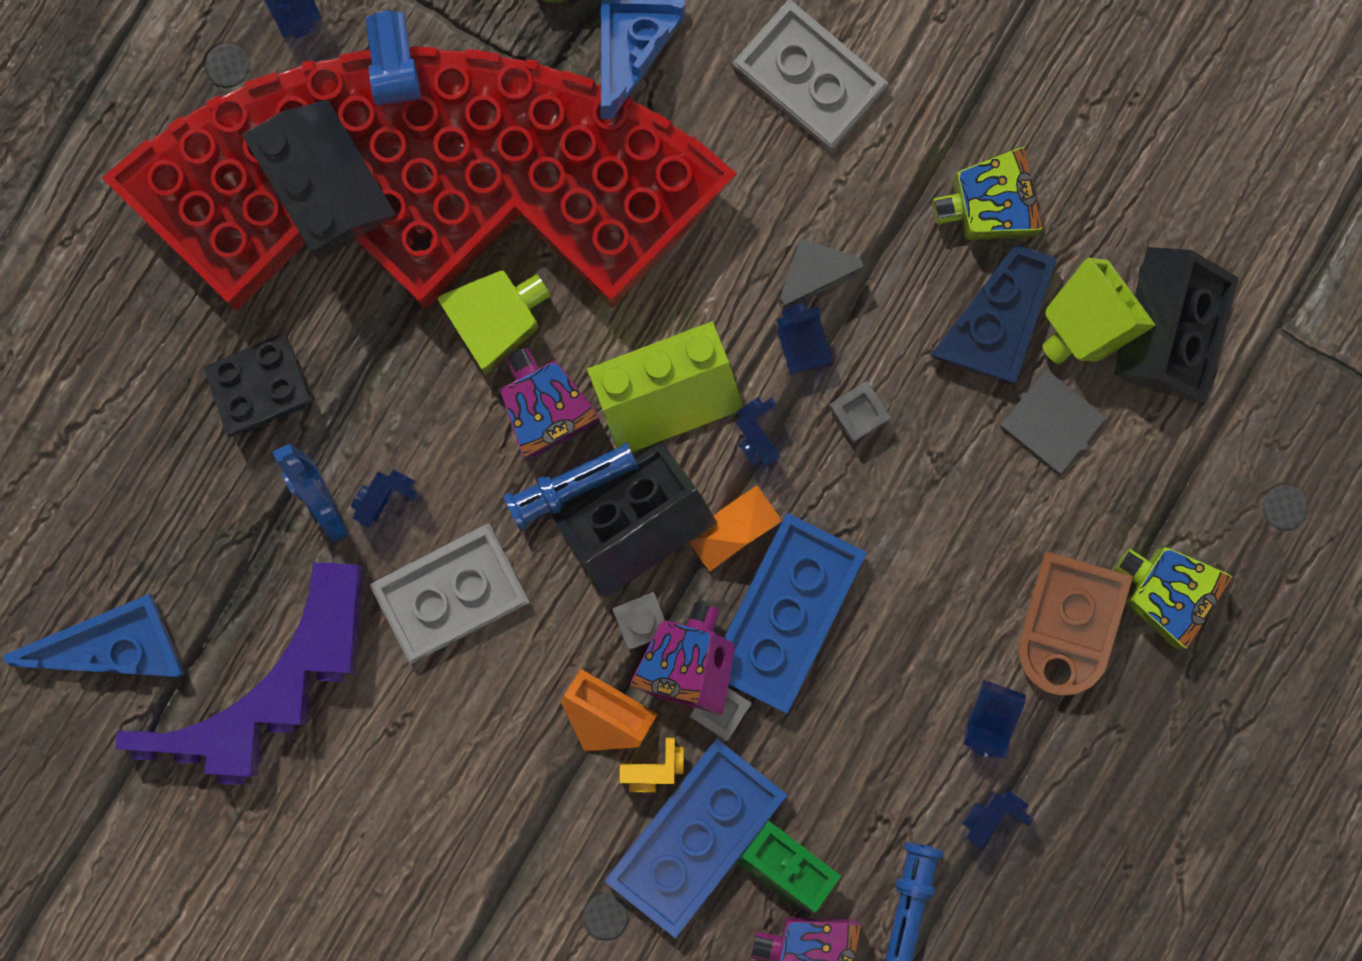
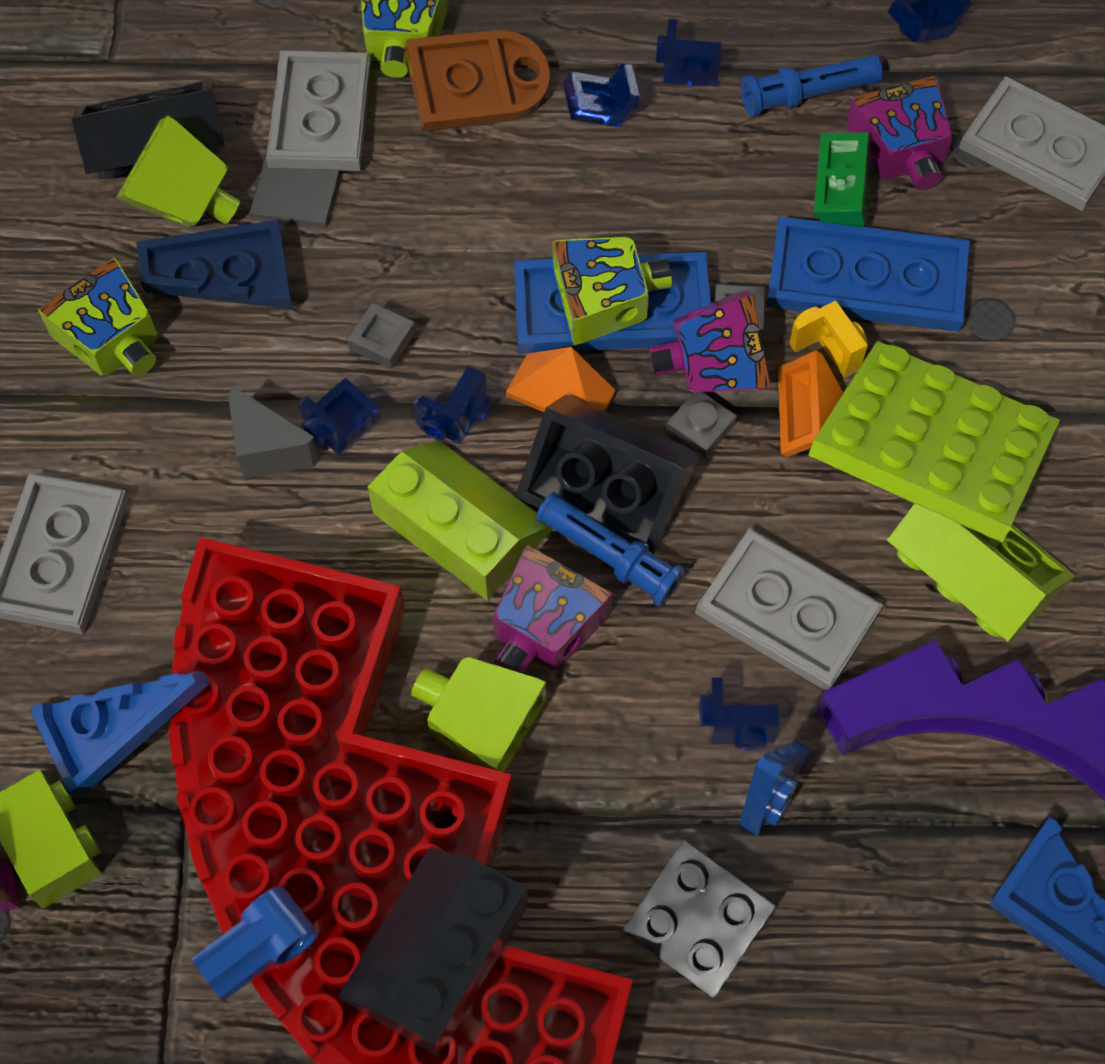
camera: 115 degrees left, 20 degrees down
(400, 761) = (995, 580): none -> lime slope
(506, 783) = (936, 440): none -> lime plate
(791, 605) = (605, 284): none -> torso
(1119, 477) = (319, 110): none -> light grey tile

